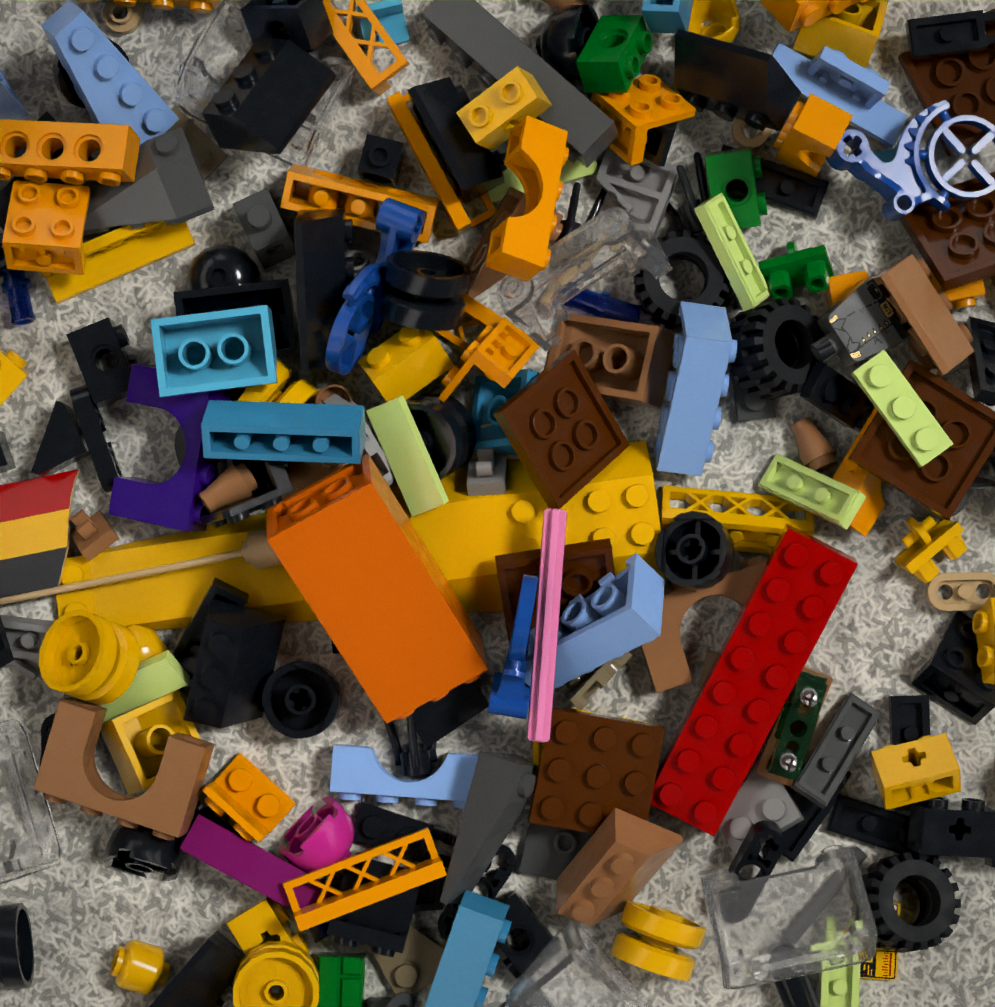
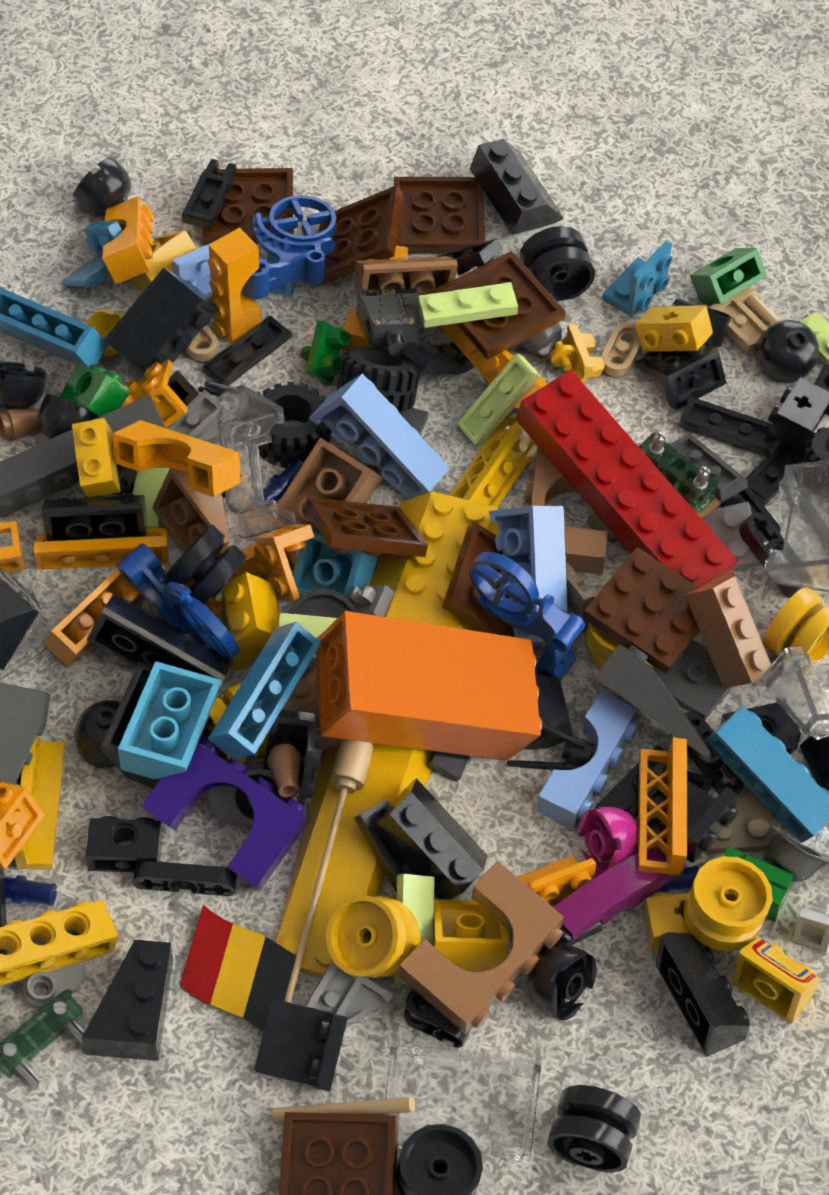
camera: 70 degrees left, 30 degrees down
(61, 443) = (171, 903): black slope -> none
(92, 533) = (265, 913): medium nougat tile -> none
(139, 967) = (661, 1031): yellow head -> none
(265, 228) = (82, 678): dark grey torso -> none
(282, 708) = (489, 806): black brick -> none
(381, 160) = (78, 578): black brick -> none
(546, 625) = (464, 558): bright pink axle -> none
(694, 551) = (506, 479): black cylinder -> none
(732, 251) = (290, 374): yellowish green tile -> none
(738, 164) = (226, 370): green brick -> none
(812, 446) = (461, 397): medium nougat cone -> none
(916, 771) = (745, 413): yellow brick -> none

